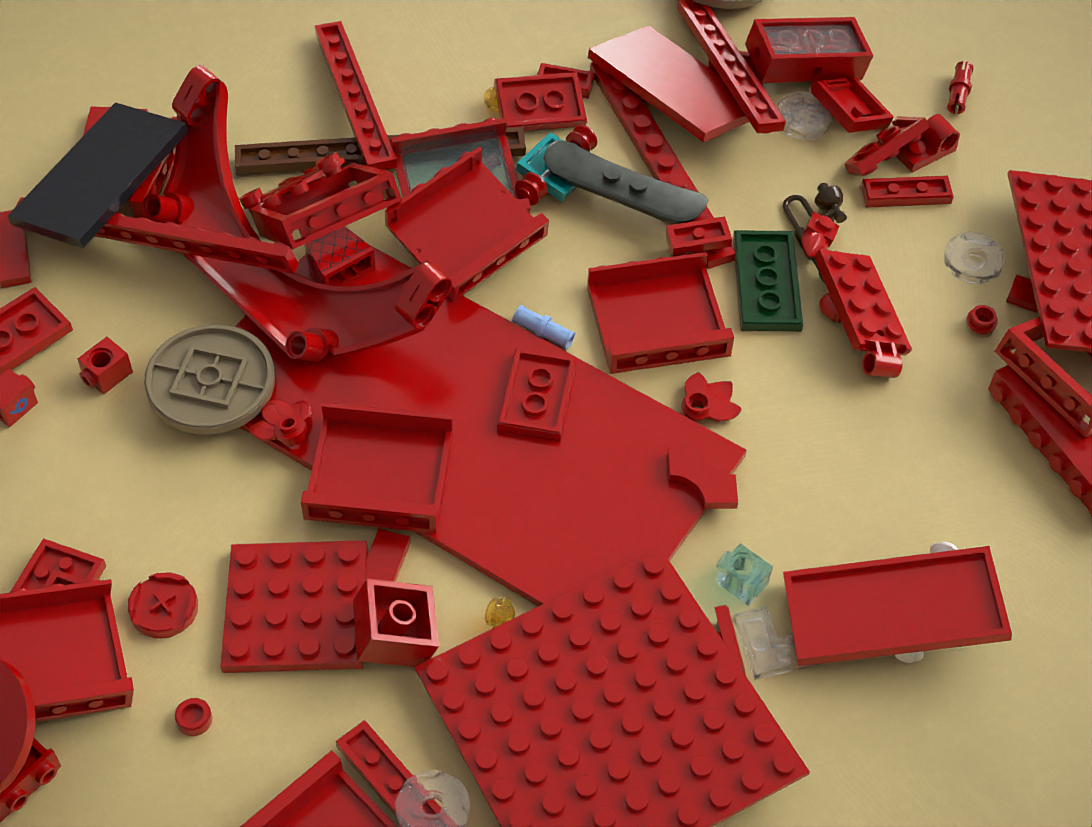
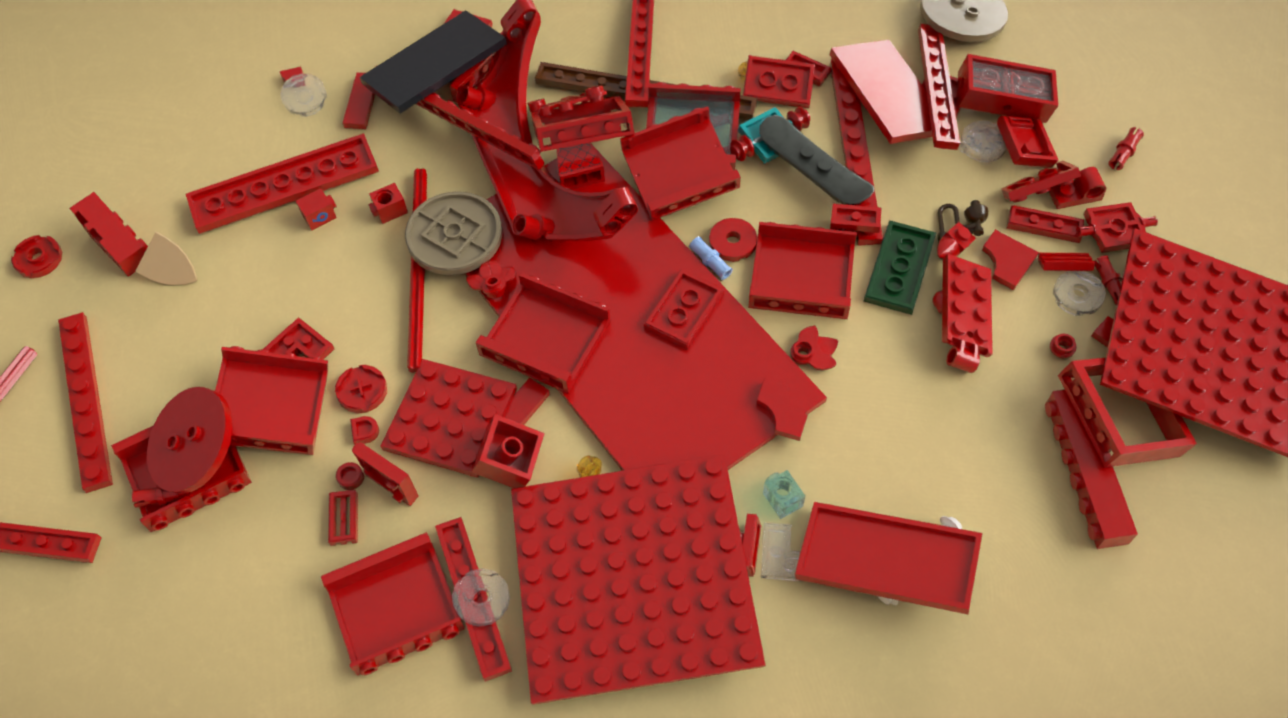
camera: 25 degrees right, 5 degrees up
(183, 454) = (417, 274): none -> red axle
(188, 654) = (364, 429): none -> red tile
(216, 796) = (343, 538): none -> red tile
(247, 696) = (386, 474): none -> red container
(560, 285) = (733, 228): none -> red tile
(884, 238) = (1009, 258): none -> red tile
(947, 226) = (1065, 261): none -> red tile
(982, 174) = (1113, 225): none -> red plate
(1002, 233) = (1110, 279): none -> red pin

